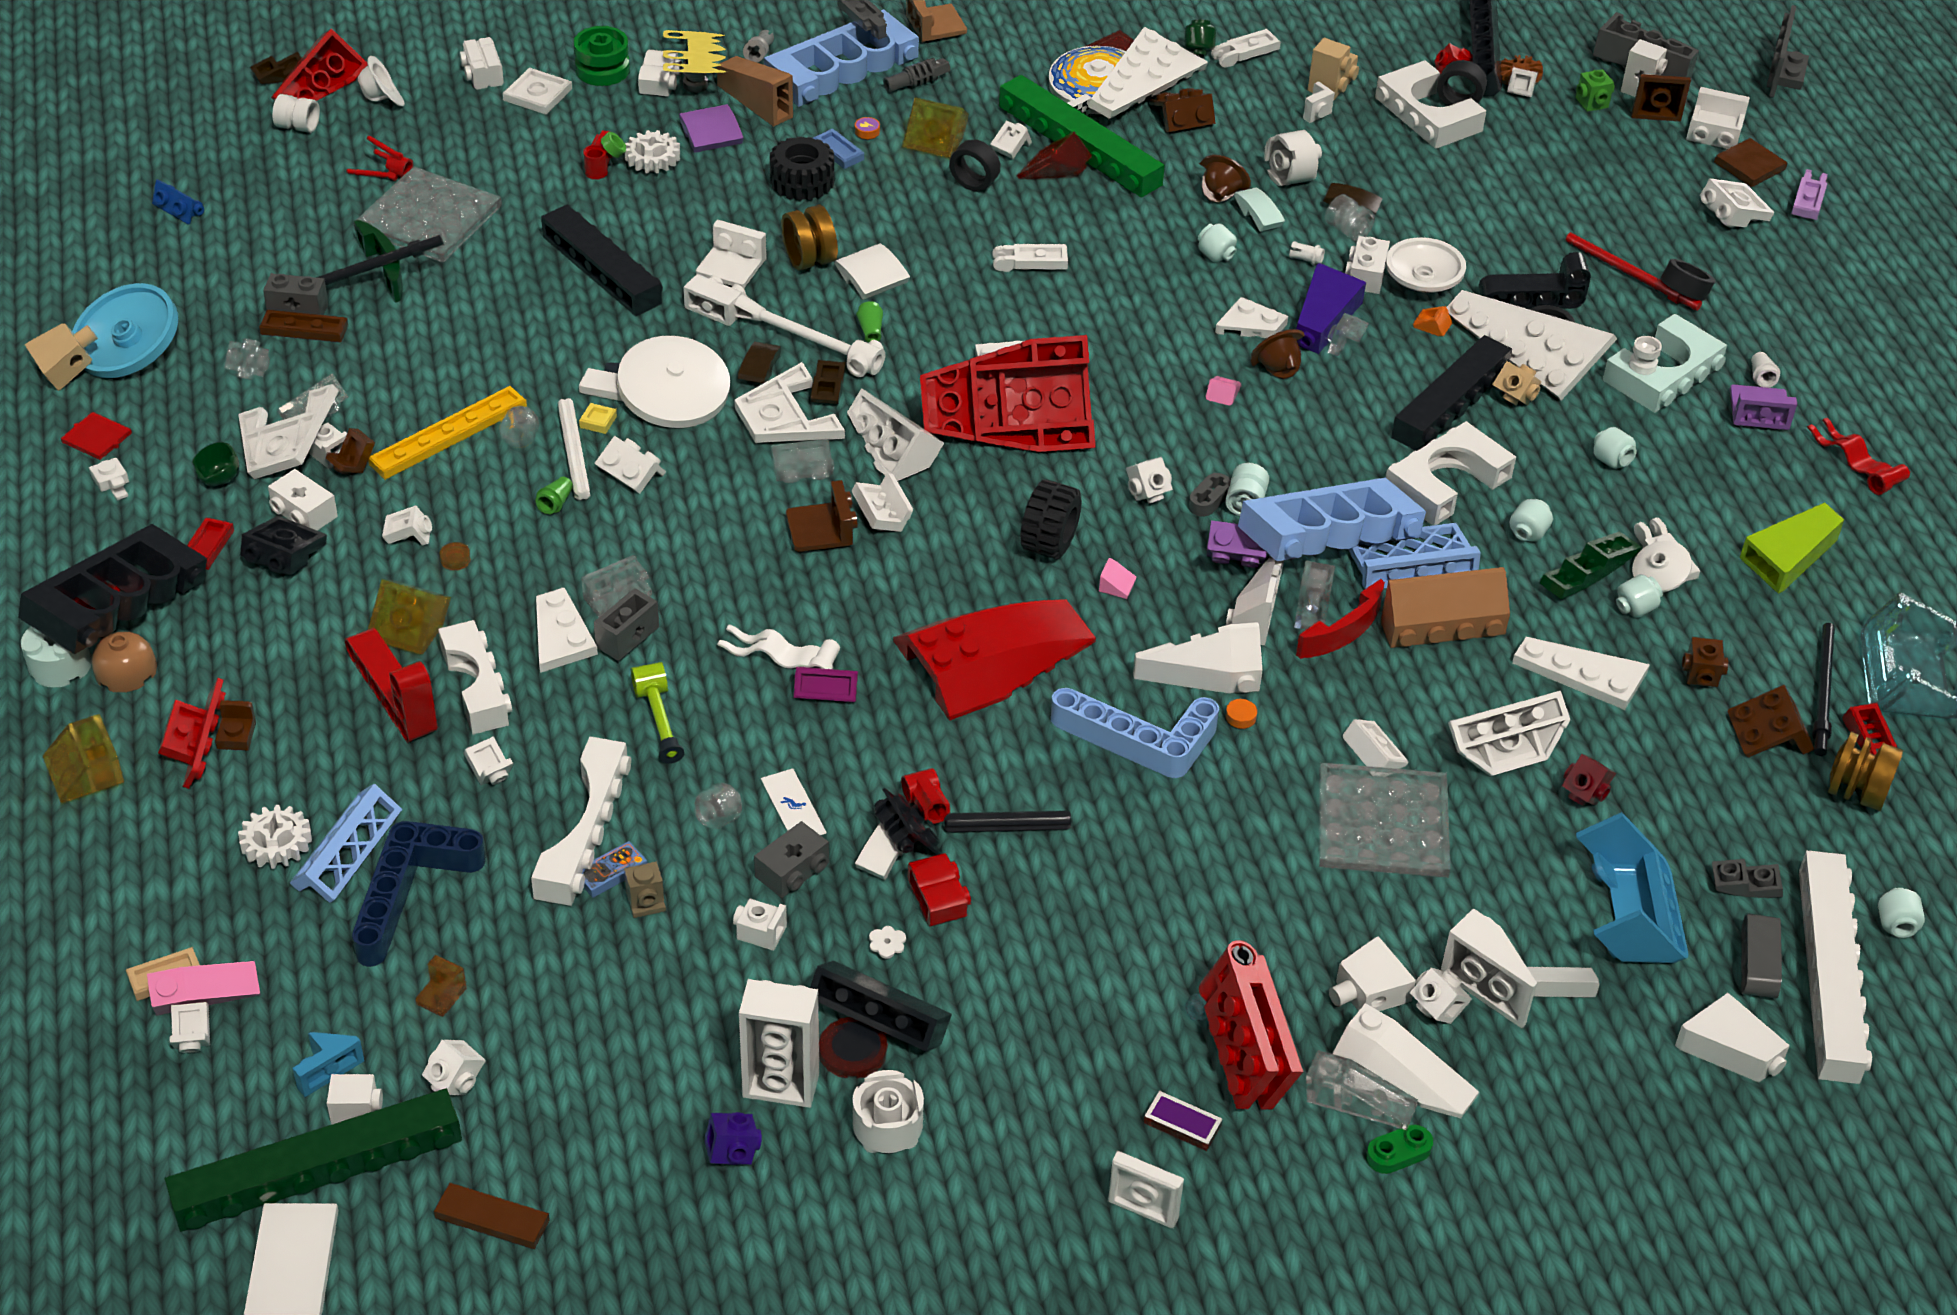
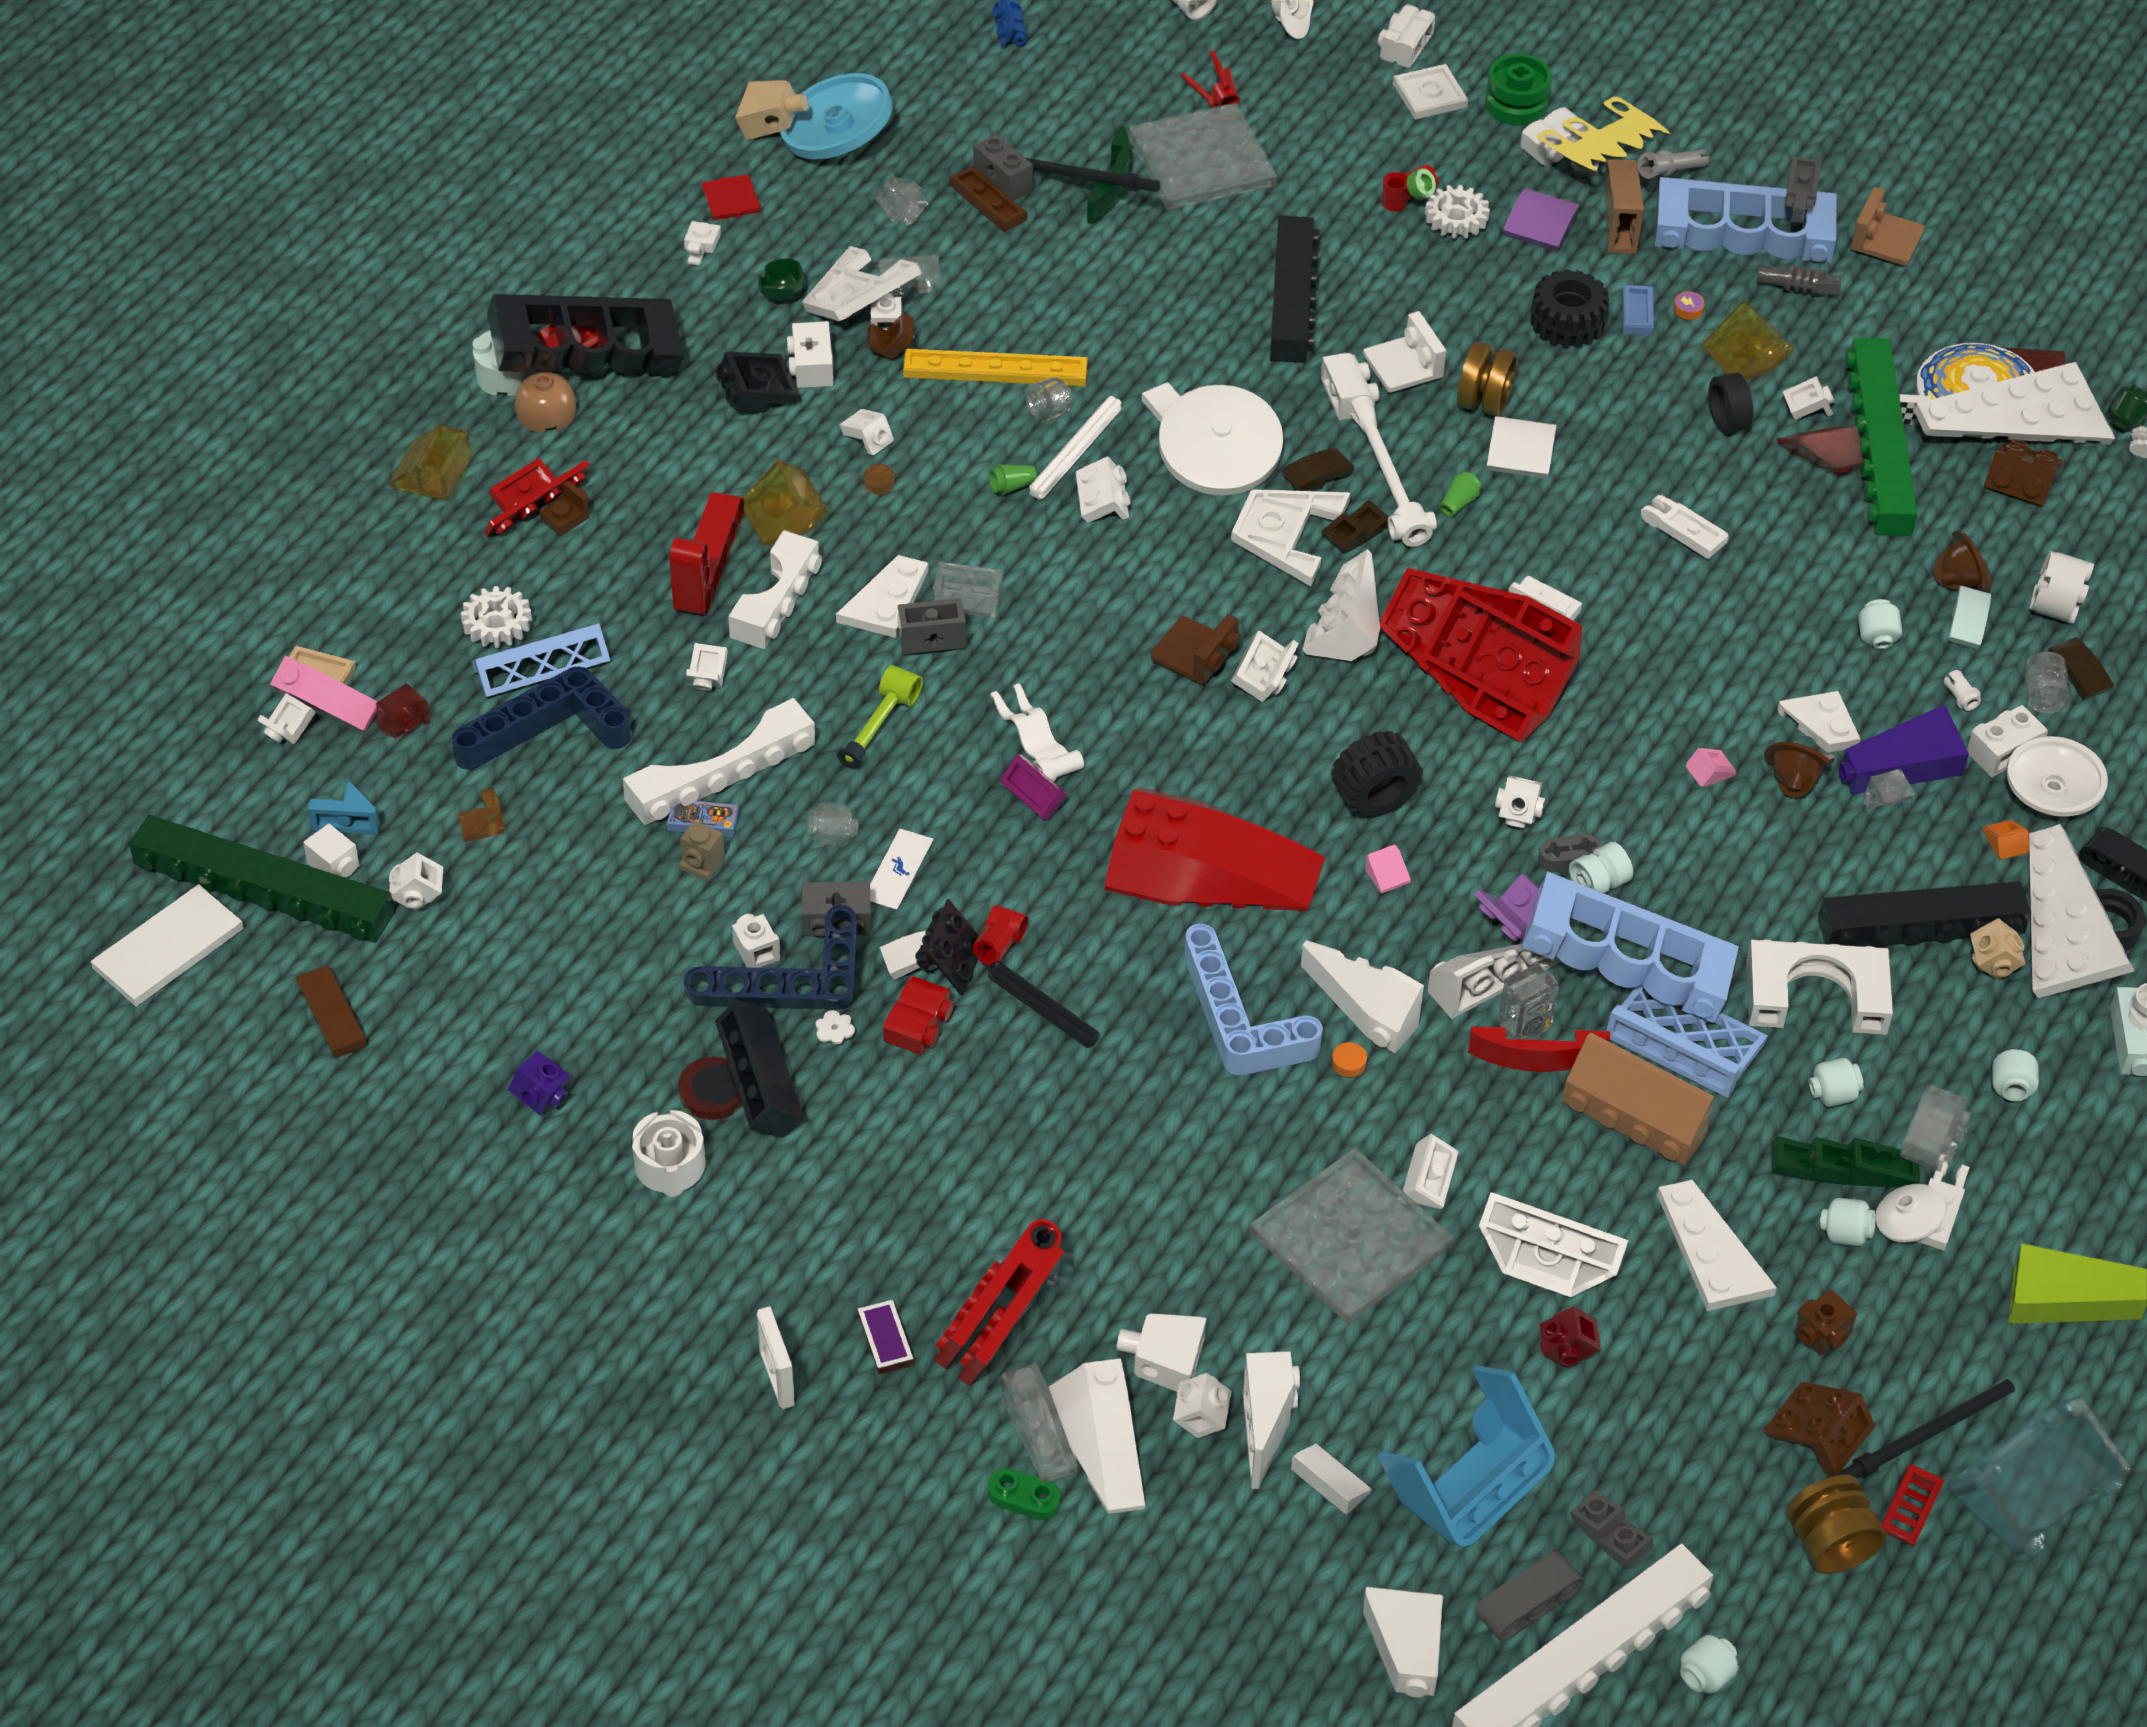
camera: 45 degrees right, 5 degrees up
(211, 538) = (711, 343): red tile -> none
(282, 955) = (401, 711): none -> clear red brick
(598, 418) = (1127, 433): light yellow tile -> none
(779, 1042) = (629, 1033): white brick -> none
(802, 460) = (1245, 581): clear bracket -> none
(823, 932) = (787, 979): none -> dark blue beam
(1624, 502) = (1936, 1127): none -> clear brick

